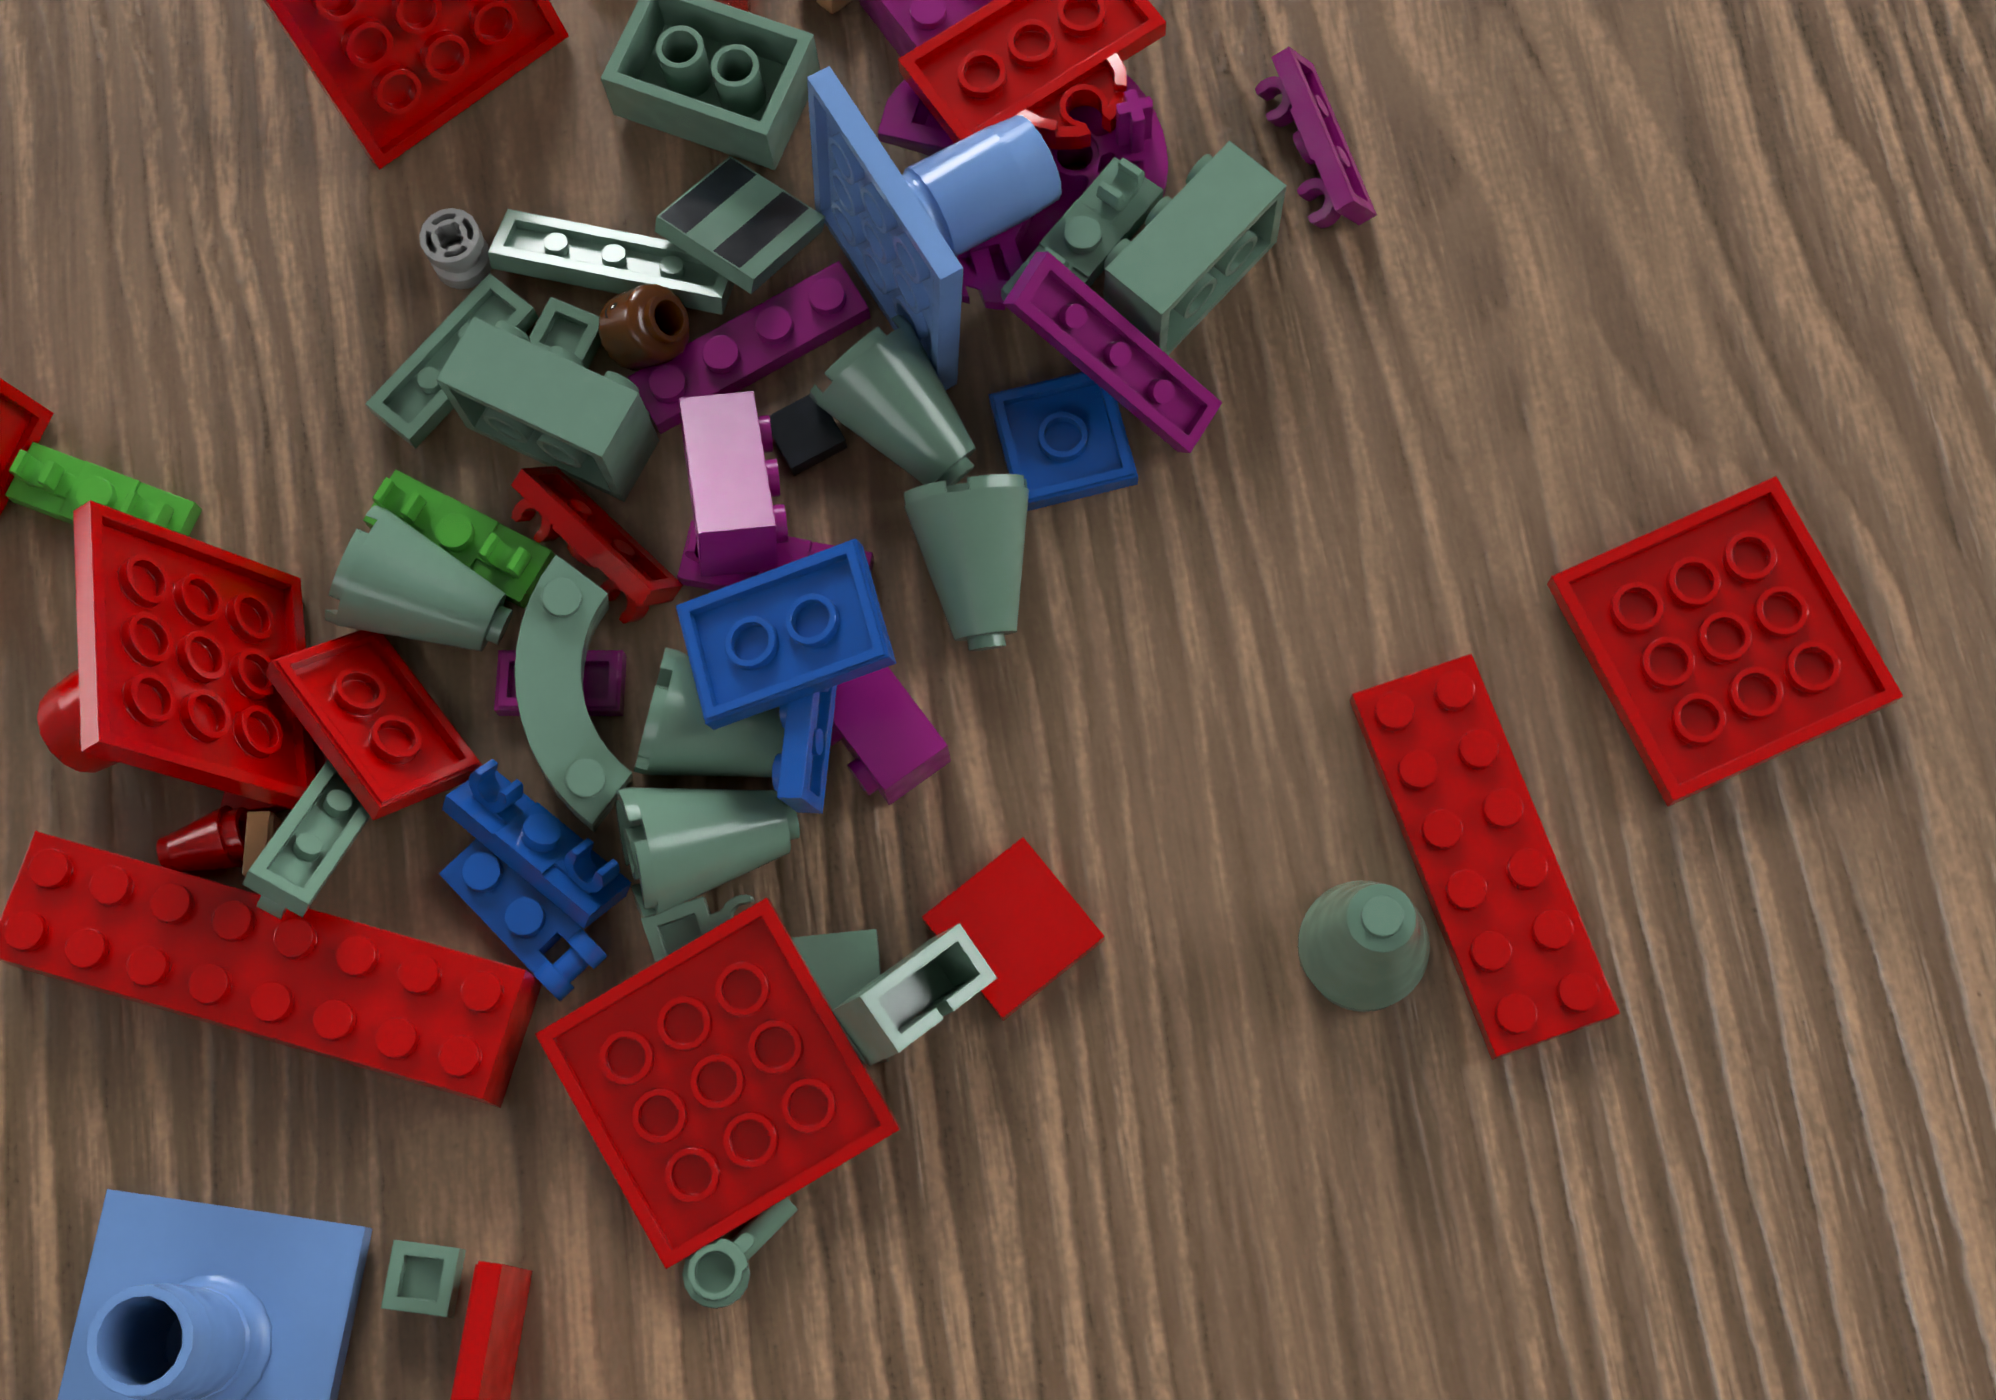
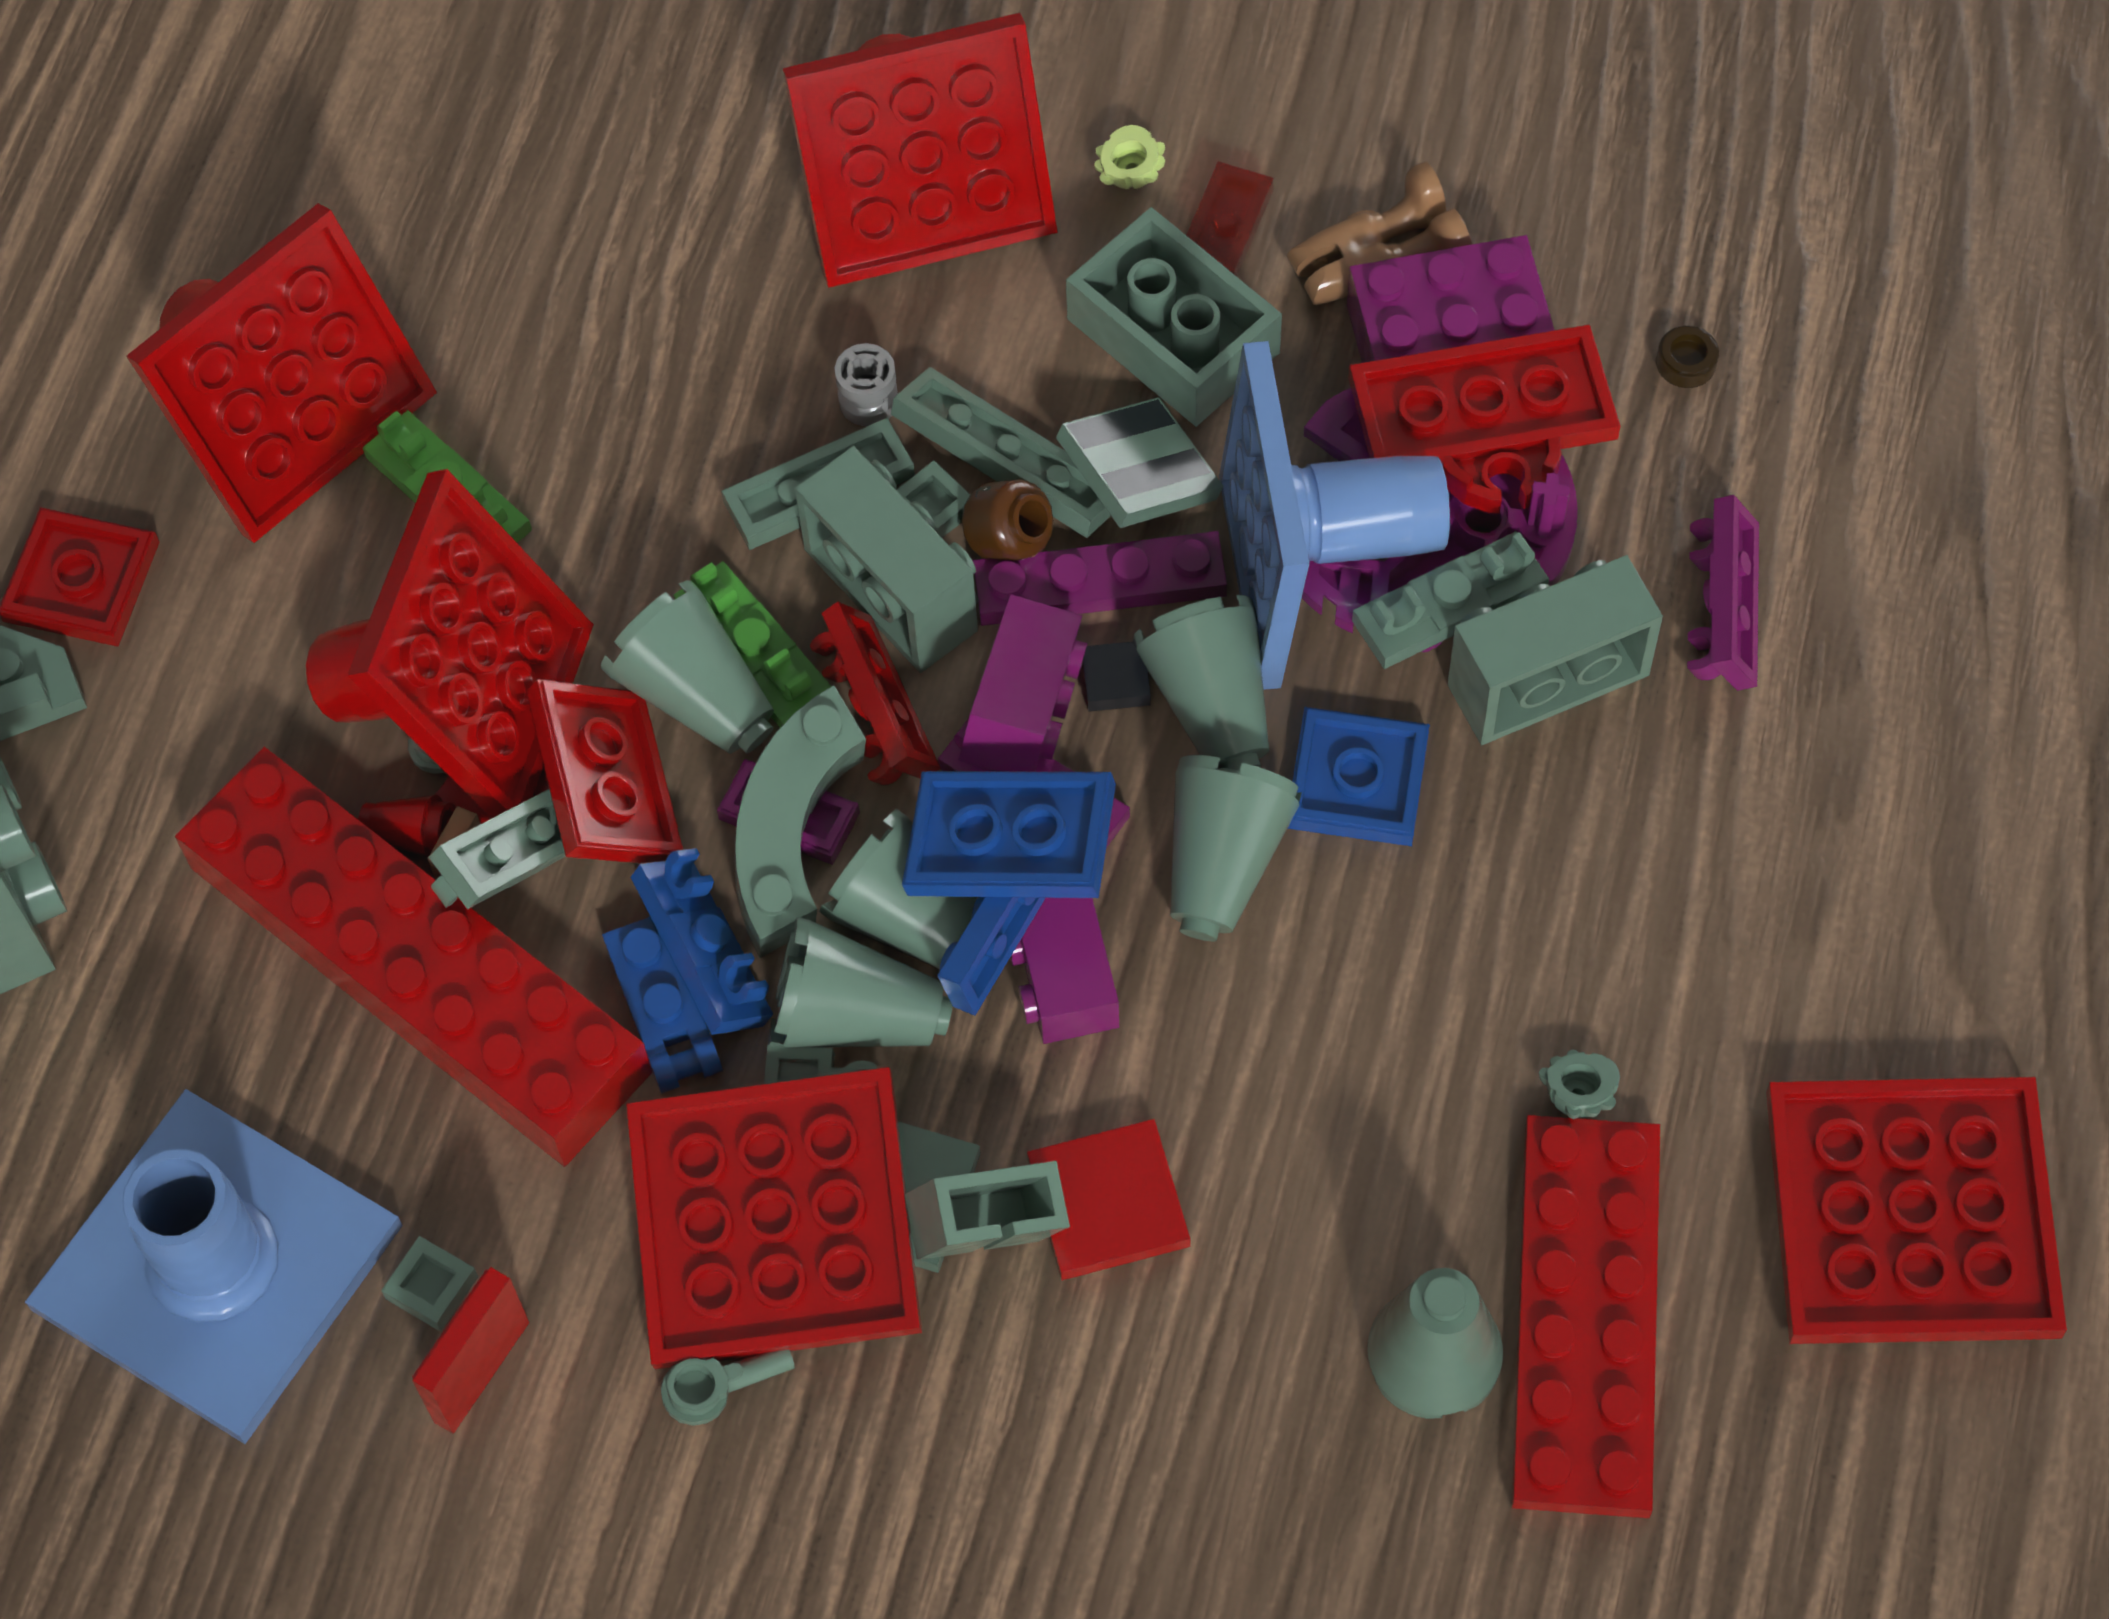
camera: 20 degrees right, 10 degrees down
(1112, 352) = (1433, 708): magenta plate -> none
(1390, 636) = (1581, 1083): none -> sand green animal

